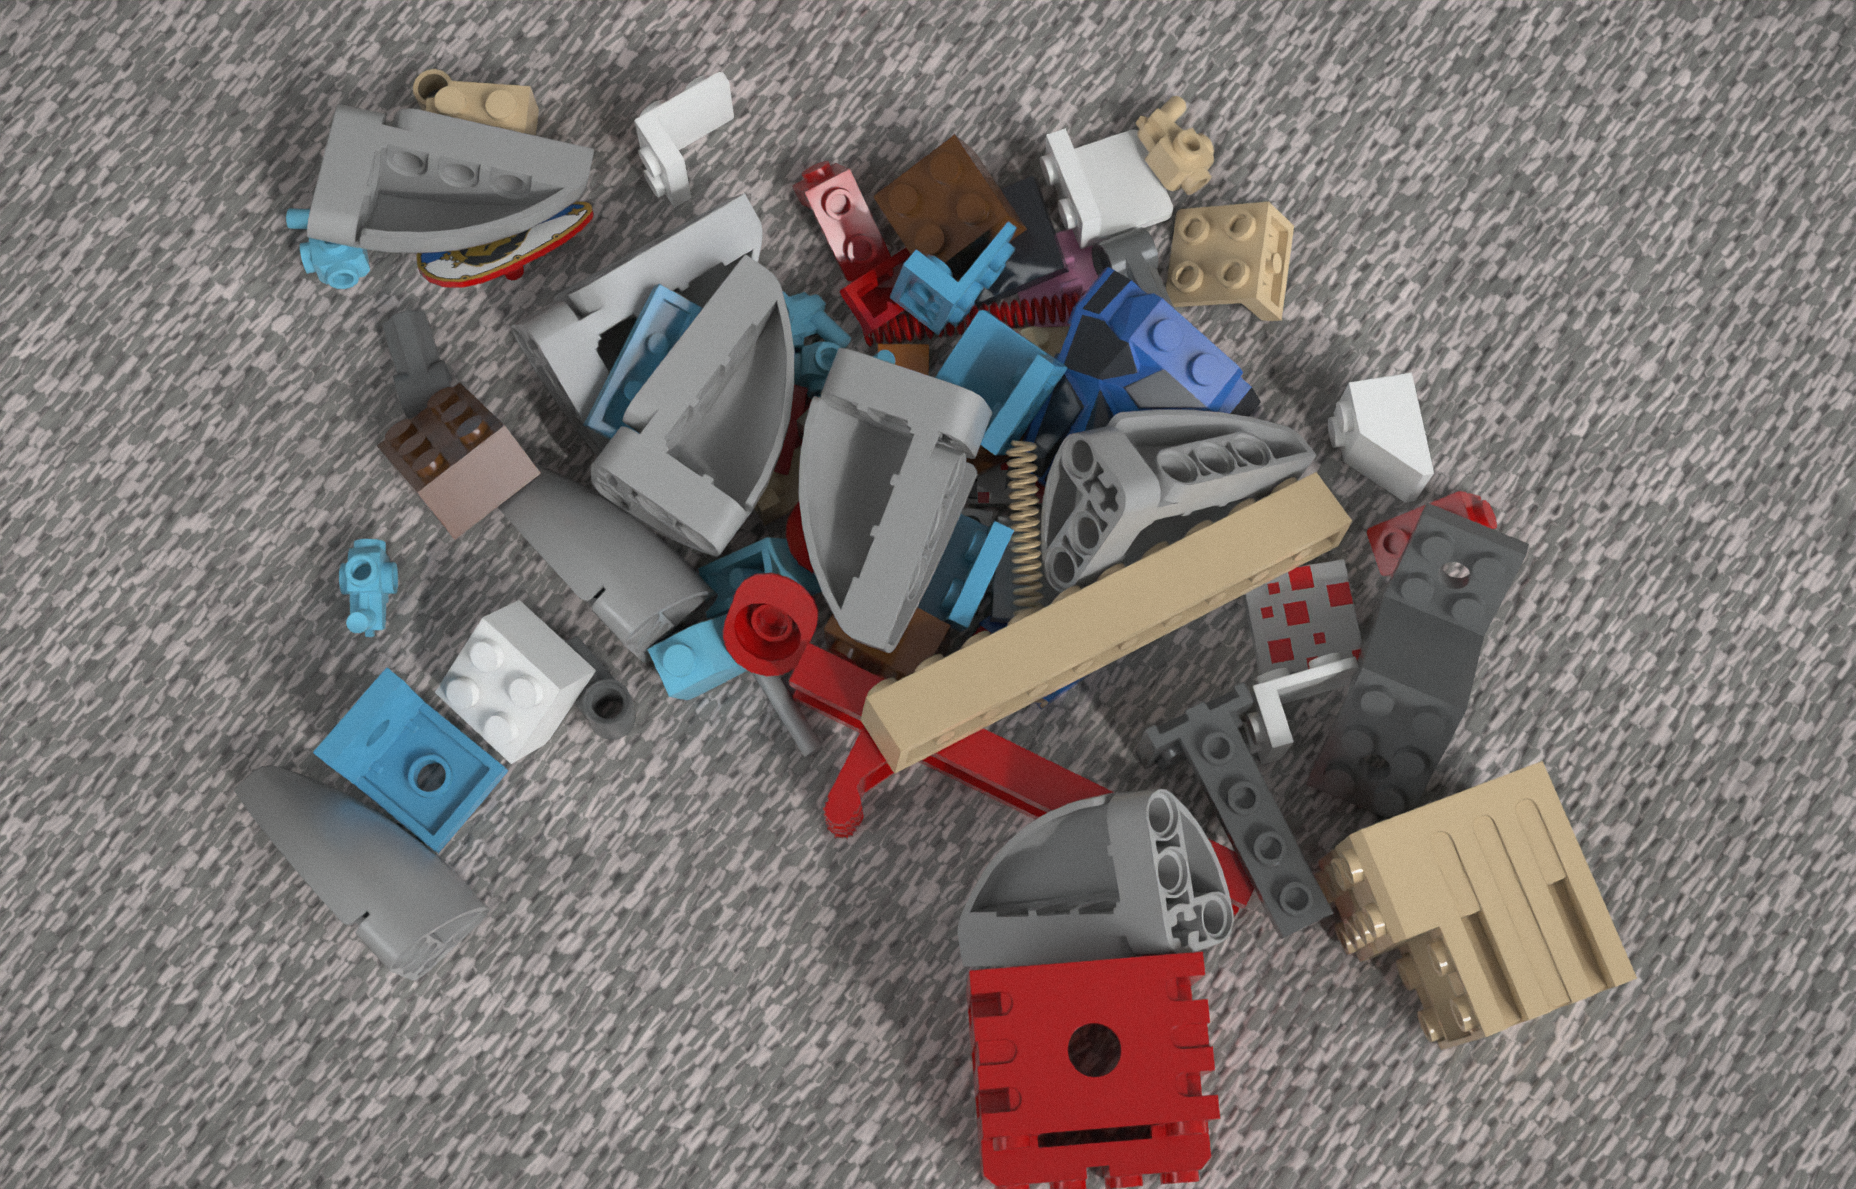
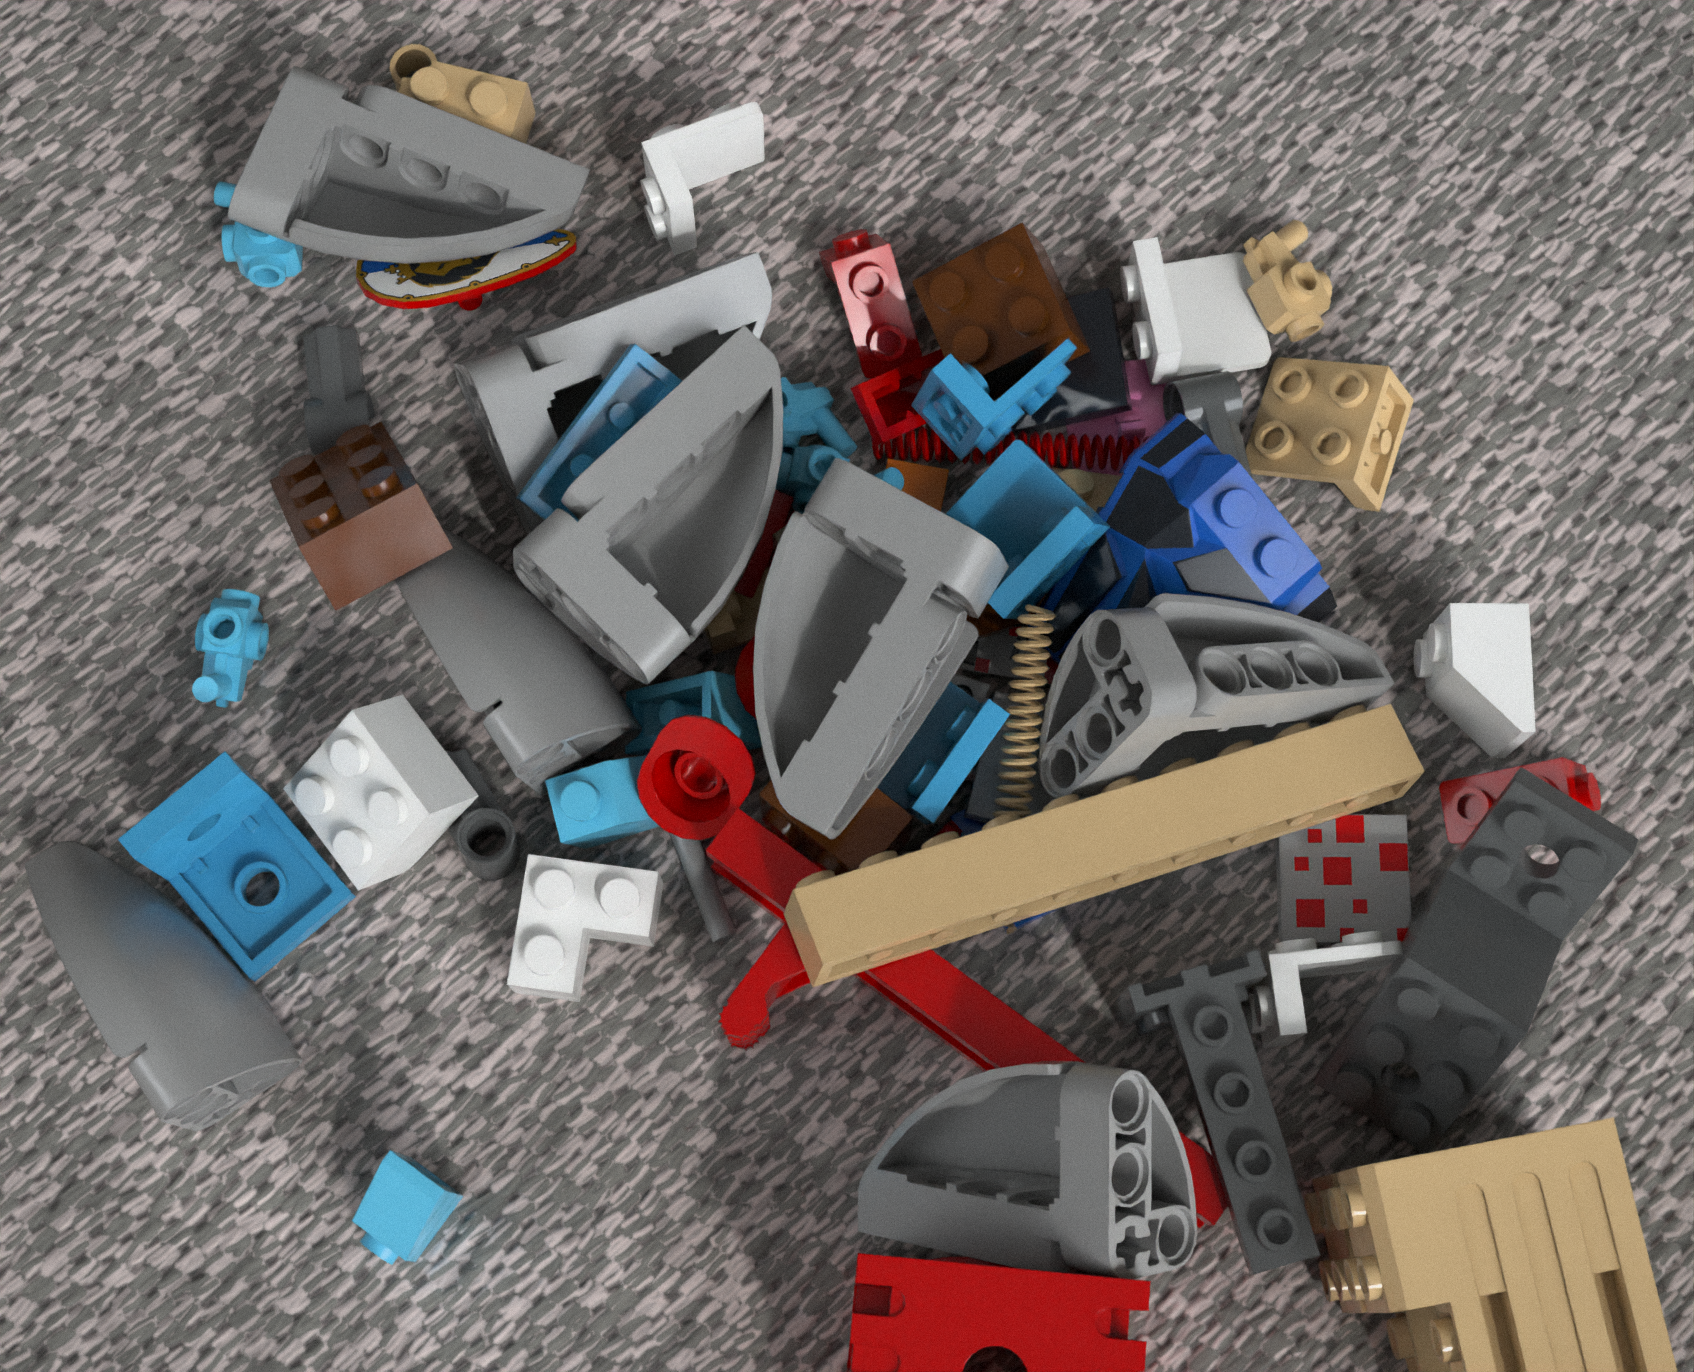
camera: 10 degrees right, 0 degrees up
(594, 1011) = (403, 1208): none -> medium azure slope
(684, 746) = (564, 908): none -> white brick

